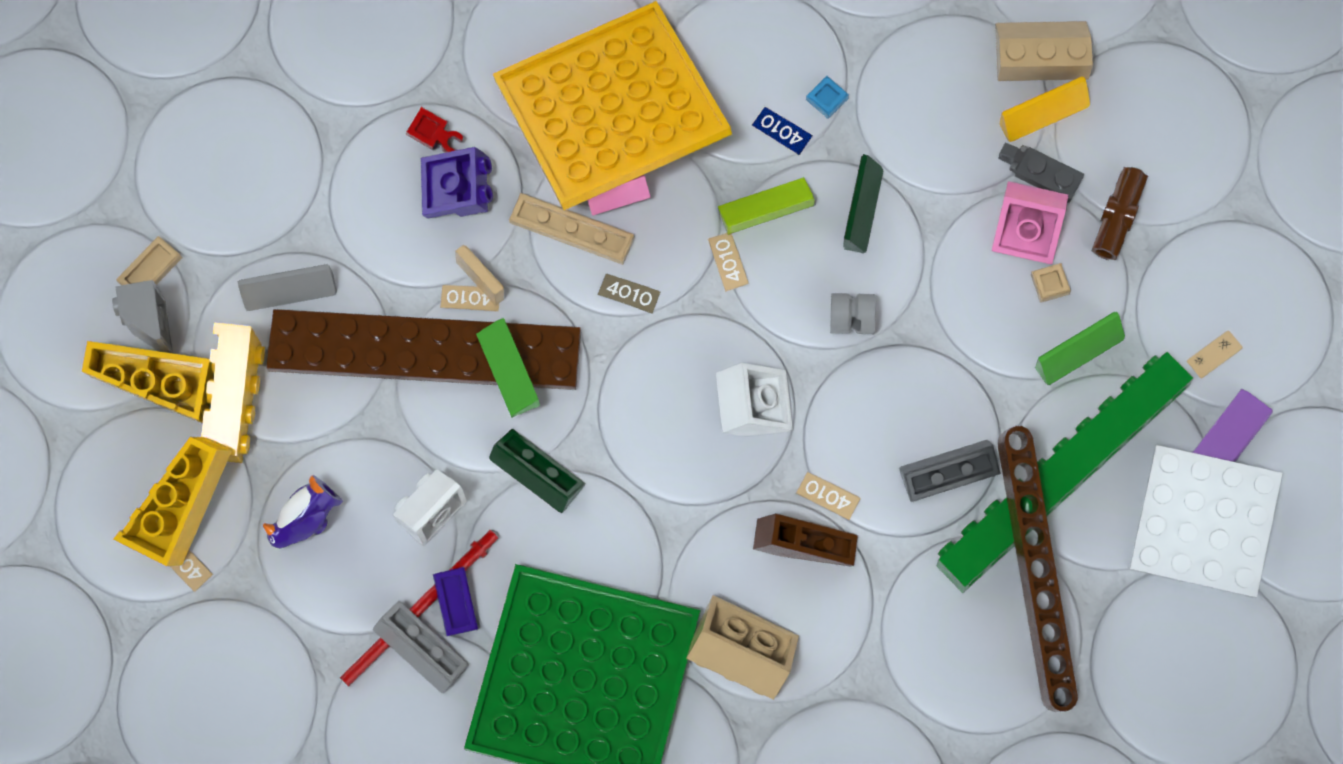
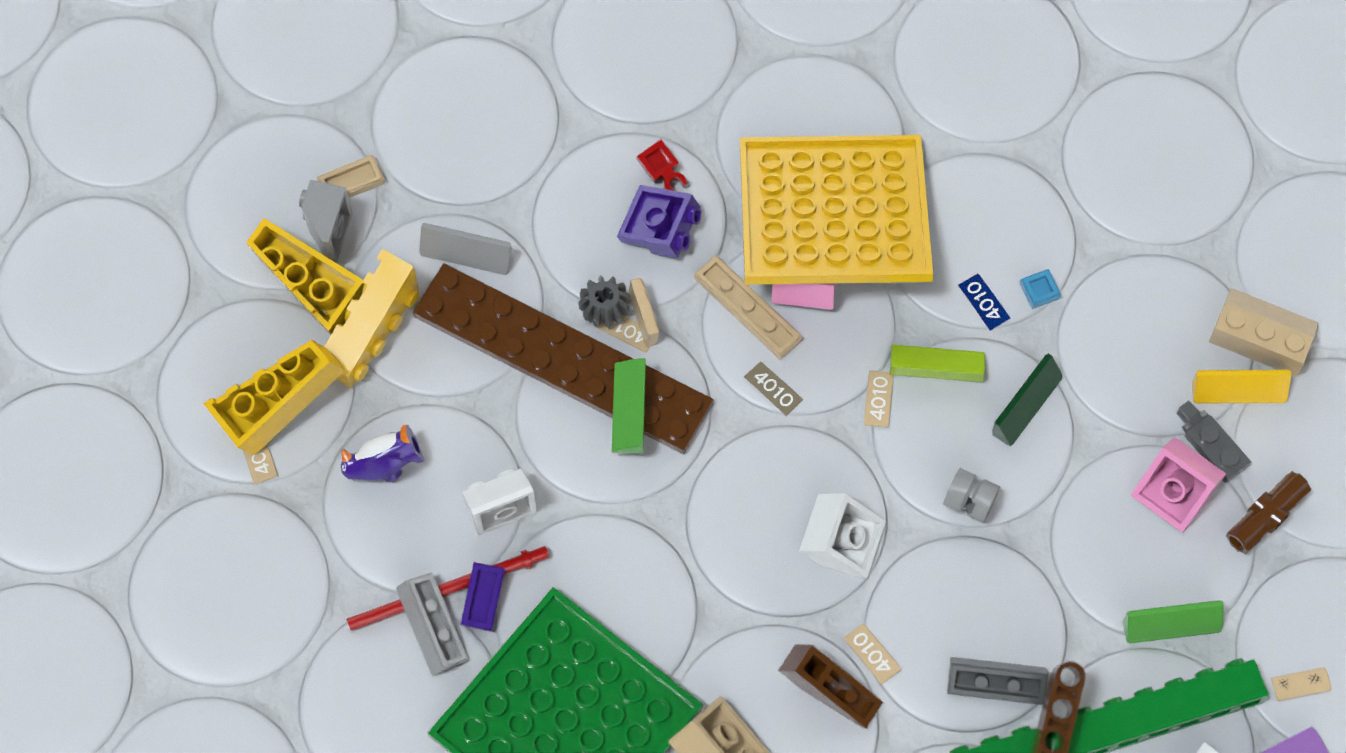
camera: 20 degrees right, 5 degrees down
(450, 282) = (604, 301): none -> dark grey gear
(536, 470) = (612, 511): dark green slope -> none
(1050, 282) = (1173, 549): tan tile -> none

